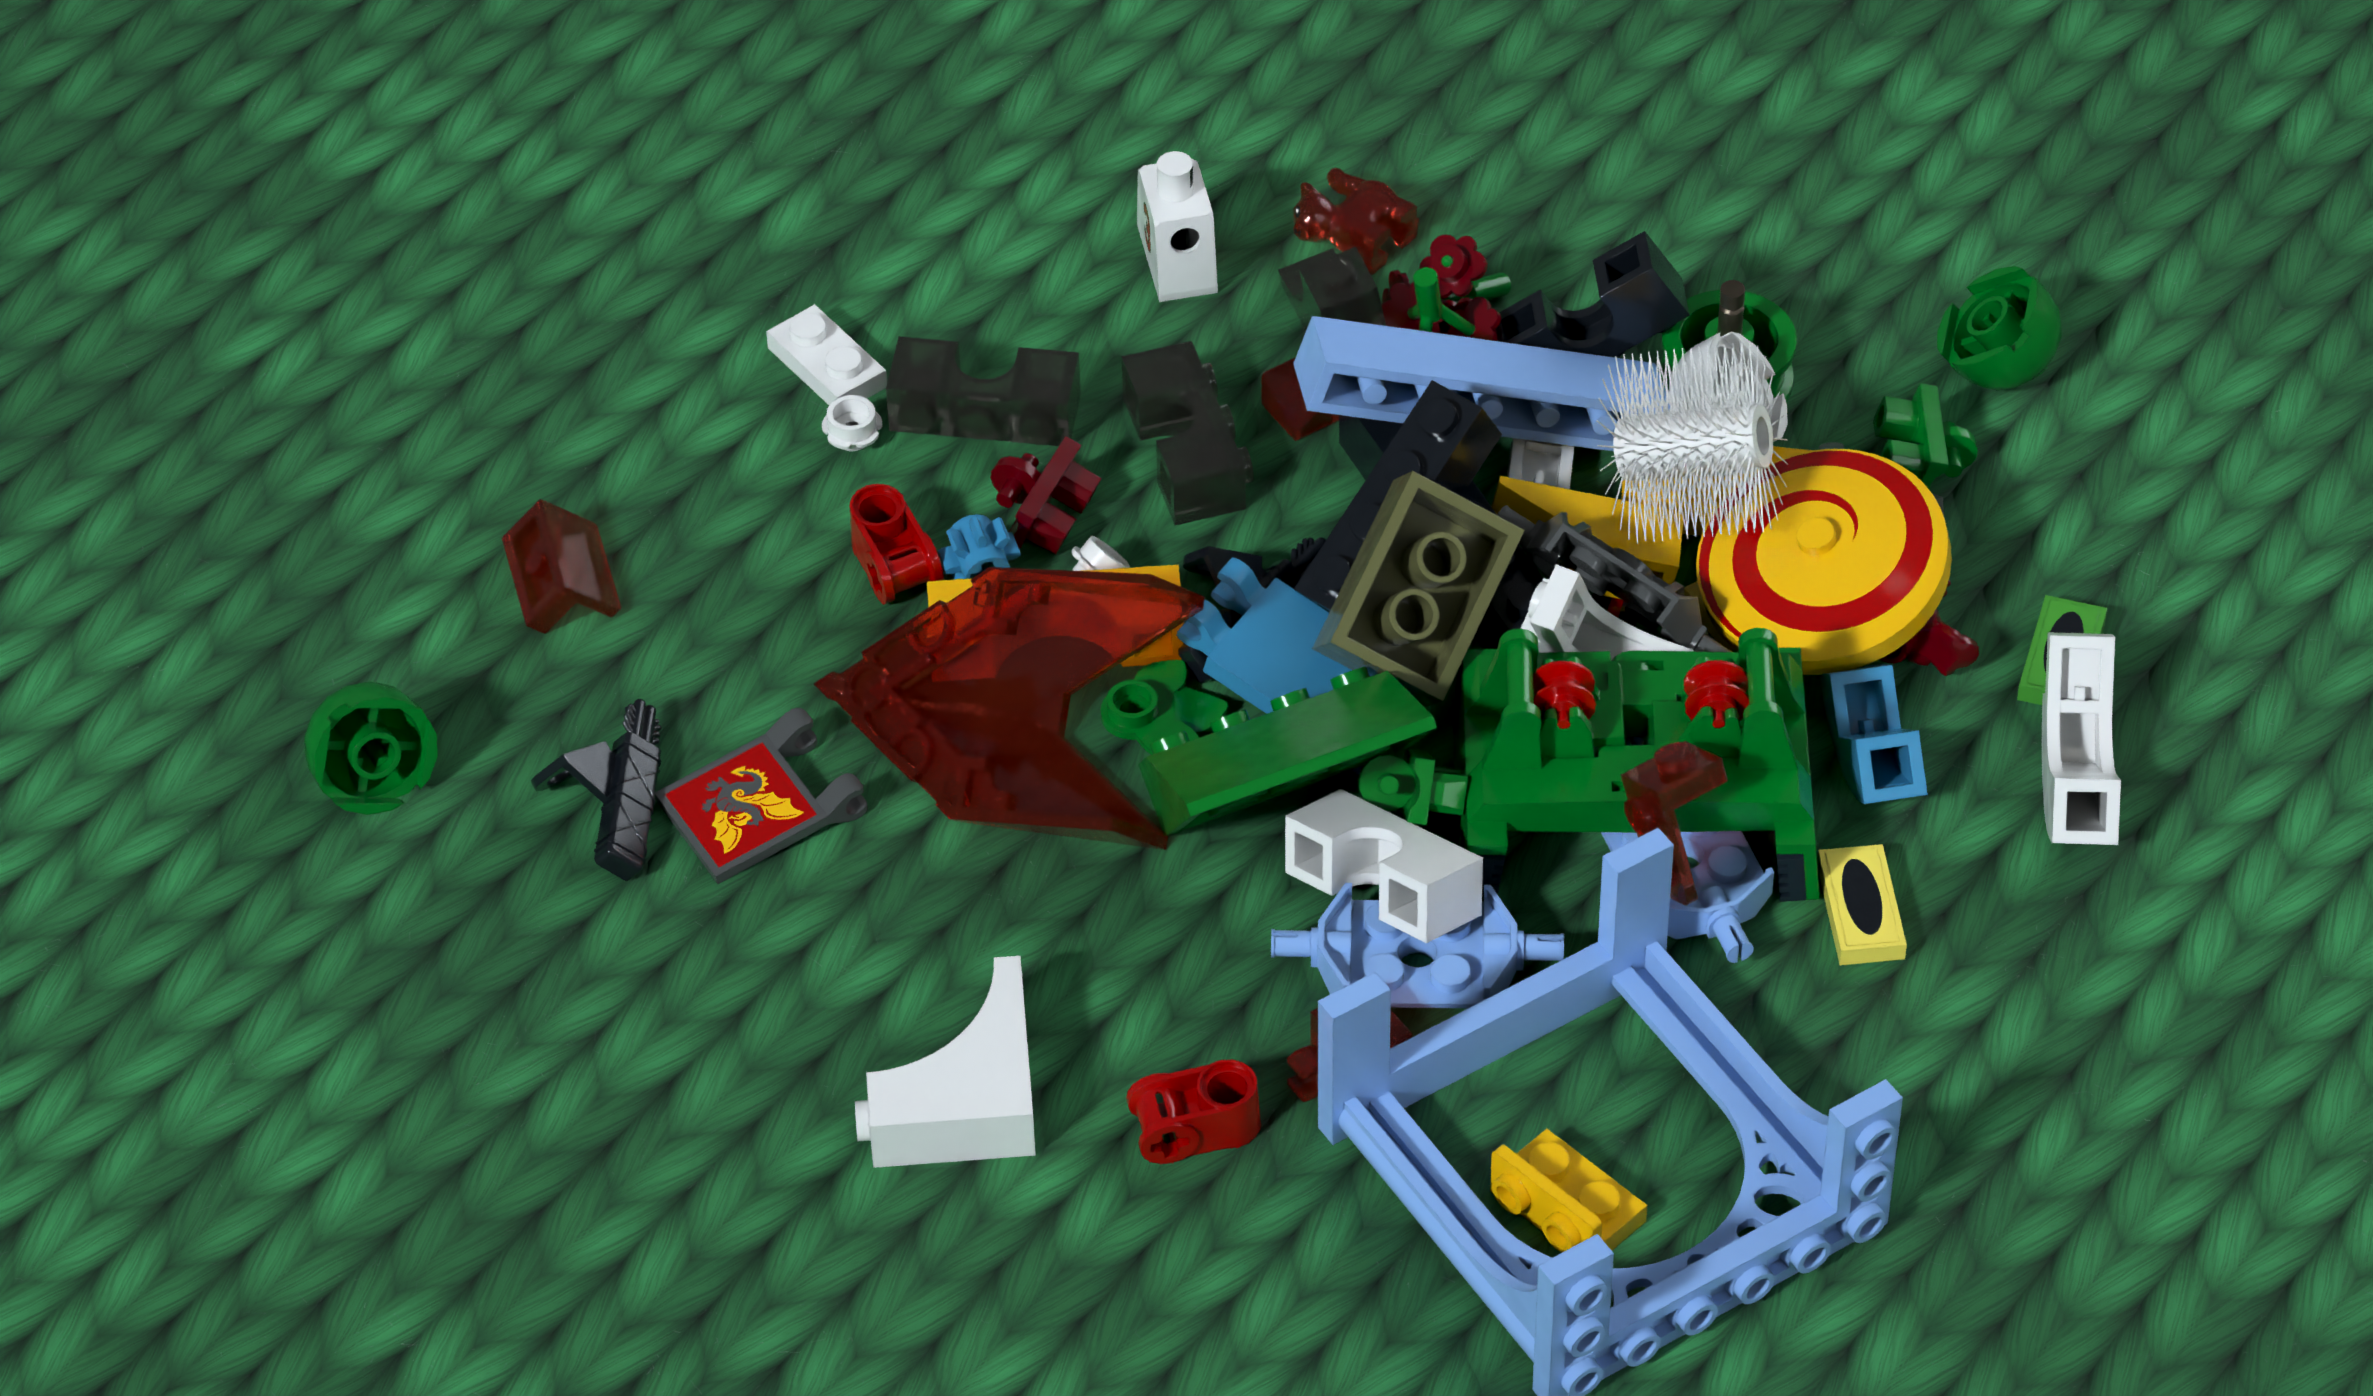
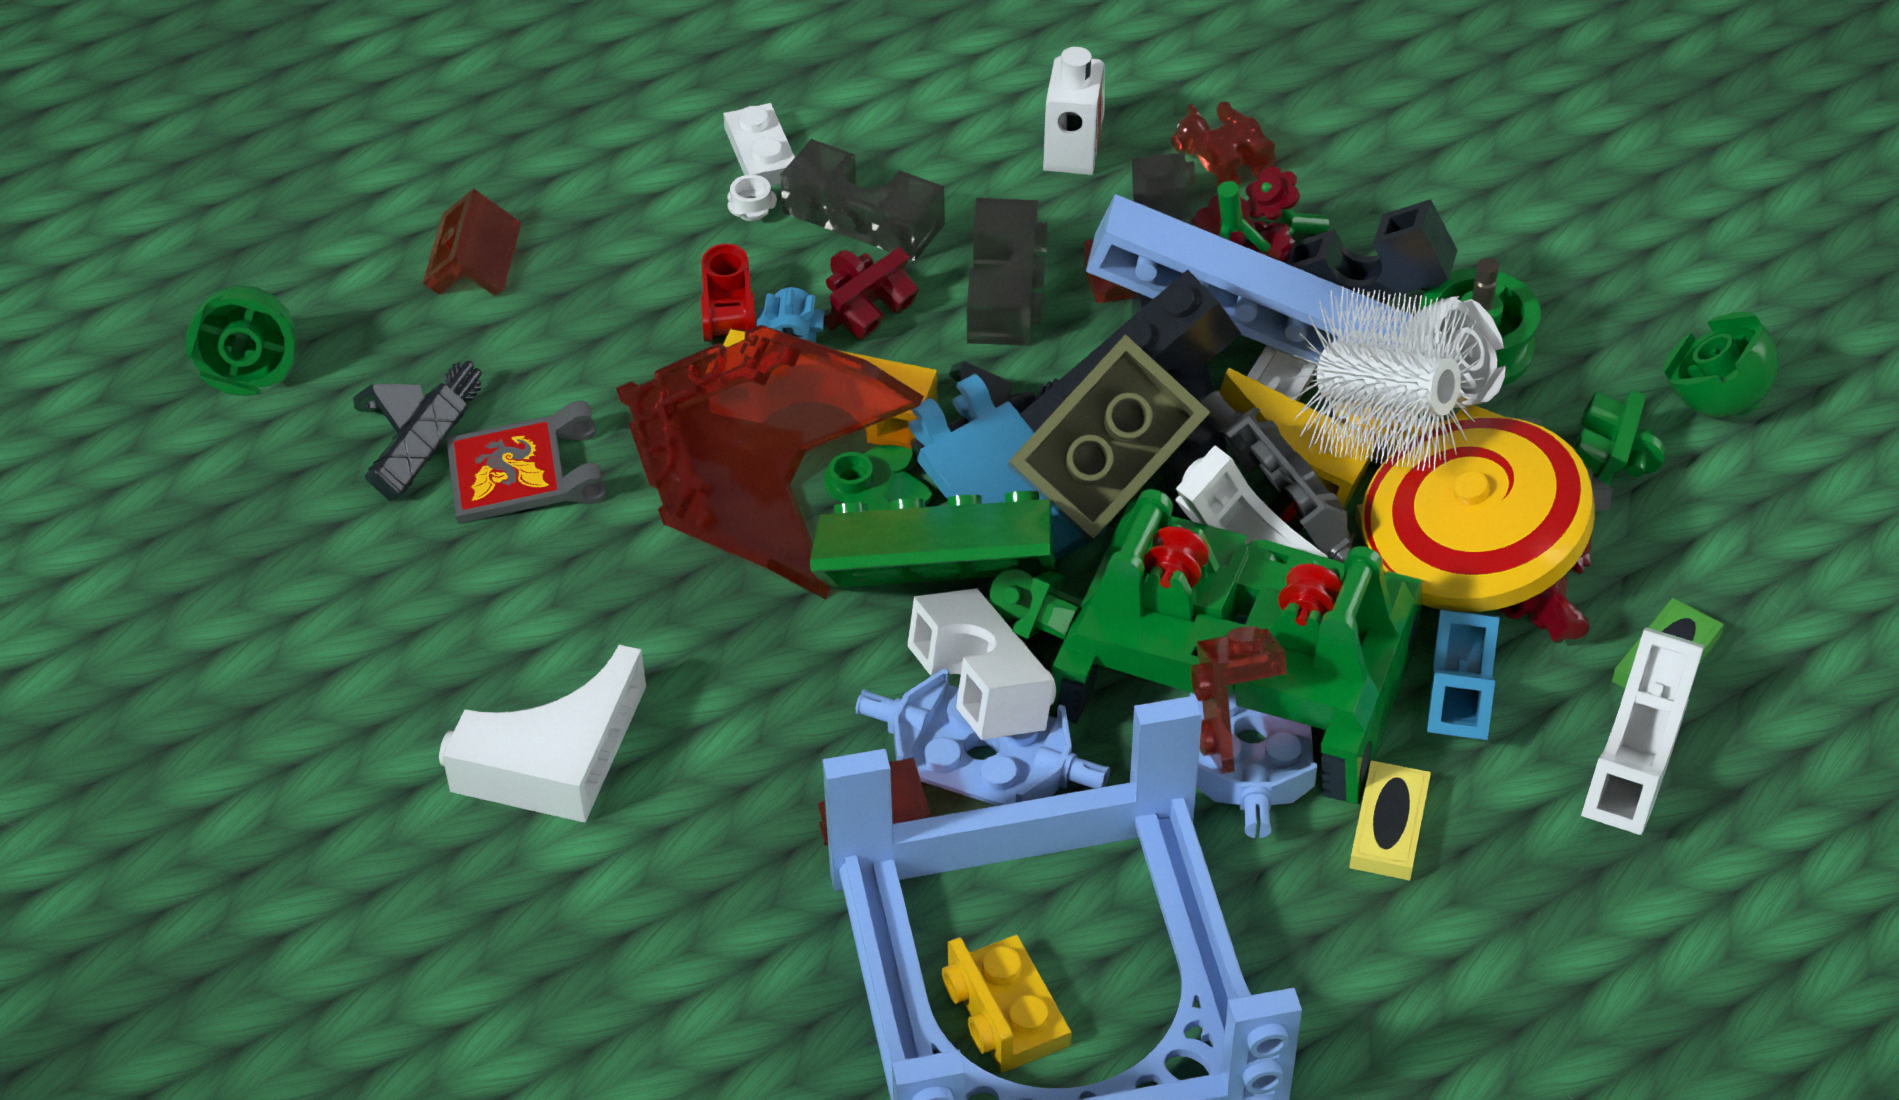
camera: 20 degrees right, 0 degrees up
(1097, 556) = (884, 347): white plate -> none
(1201, 1110) = (726, 825): red piece -> none

